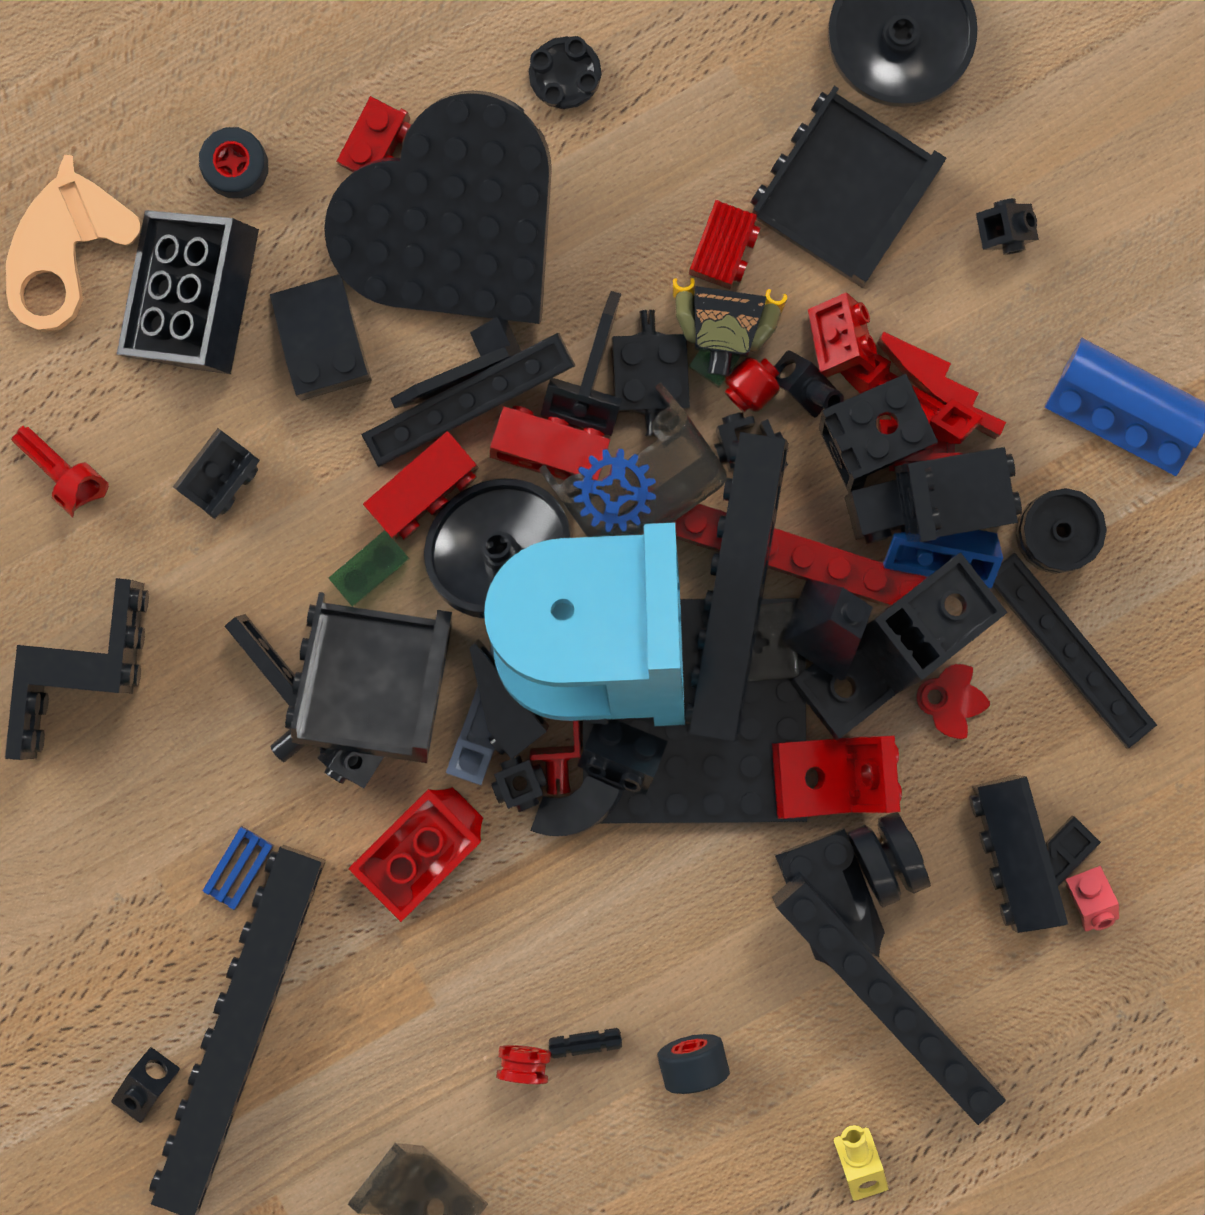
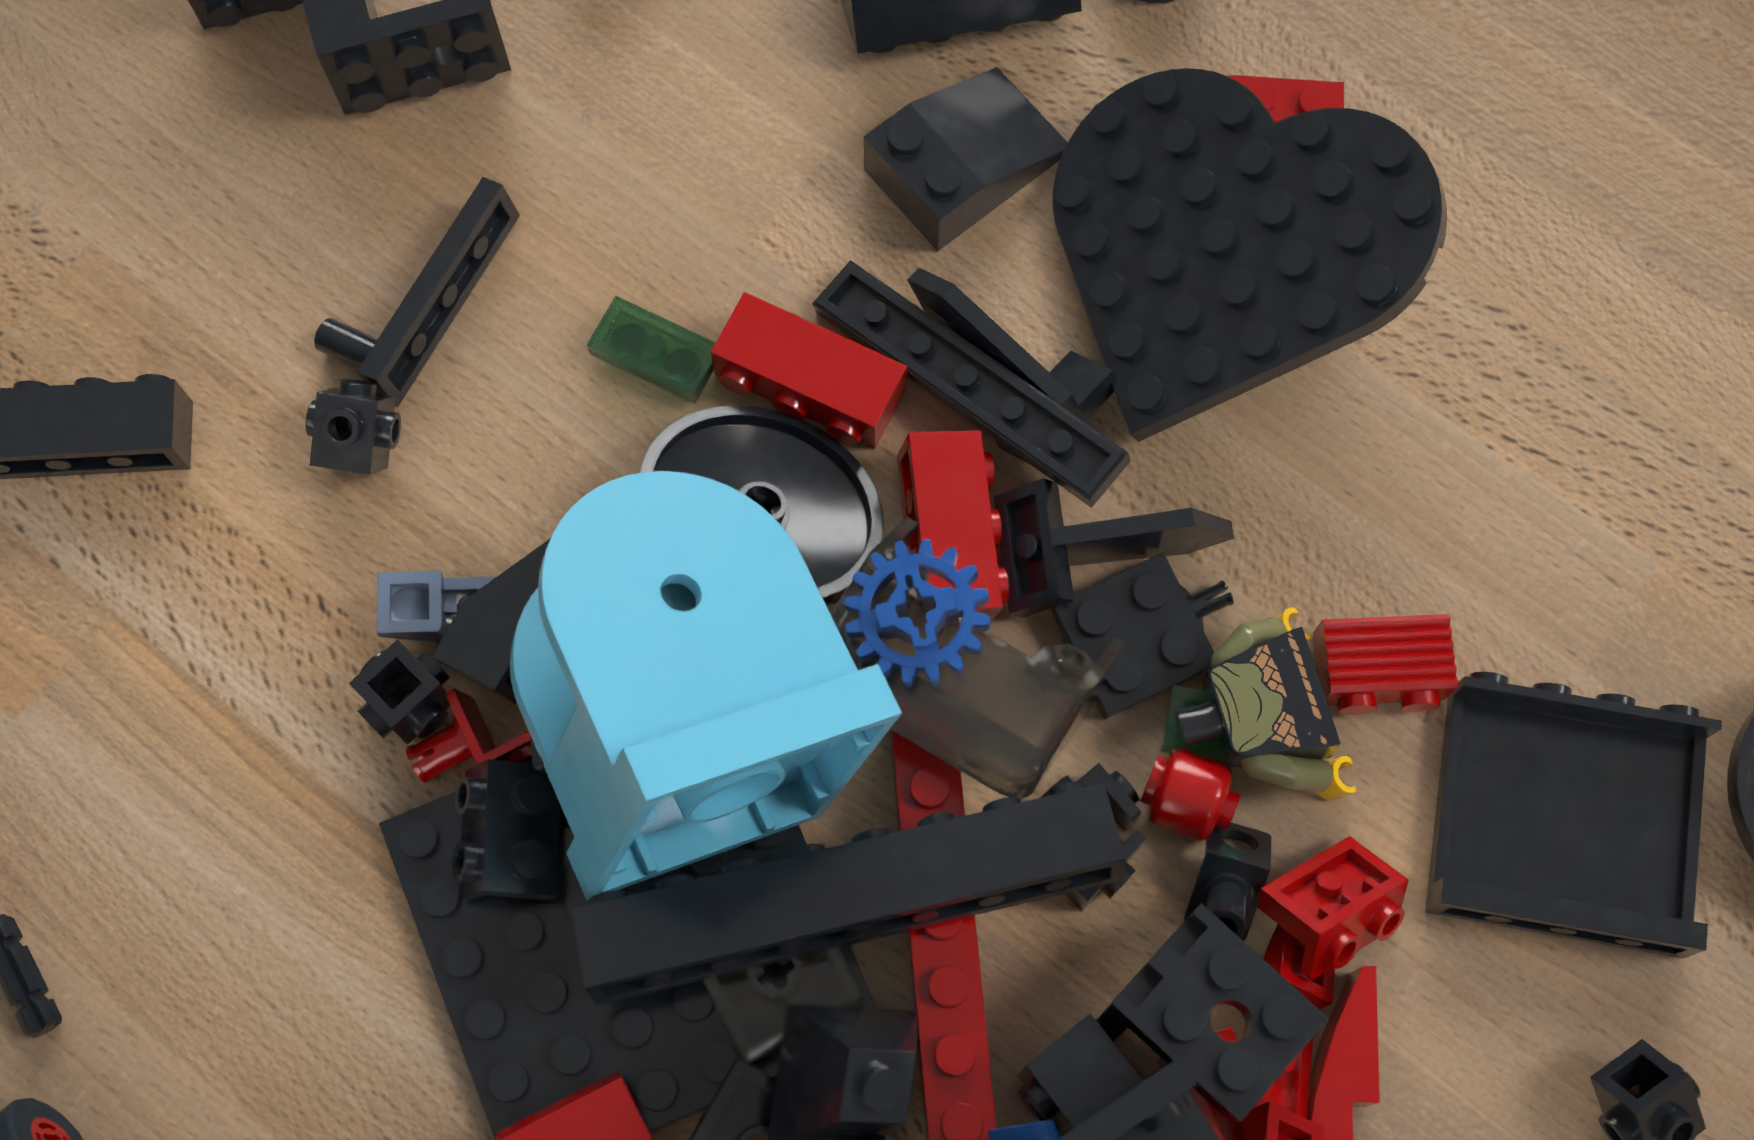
camera: 65 degrees right, 15 degrees down
(217, 474) = (707, 90): black bracket -> none
(221, 895) = (92, 321): blue tile -> none
(369, 681) = (473, 402): black panel -> none
(419, 850) = (244, 588): red slope -> none
(564, 72) = (1520, 328): black dish -> none
(578, 811) = (394, 804): black tile -> none

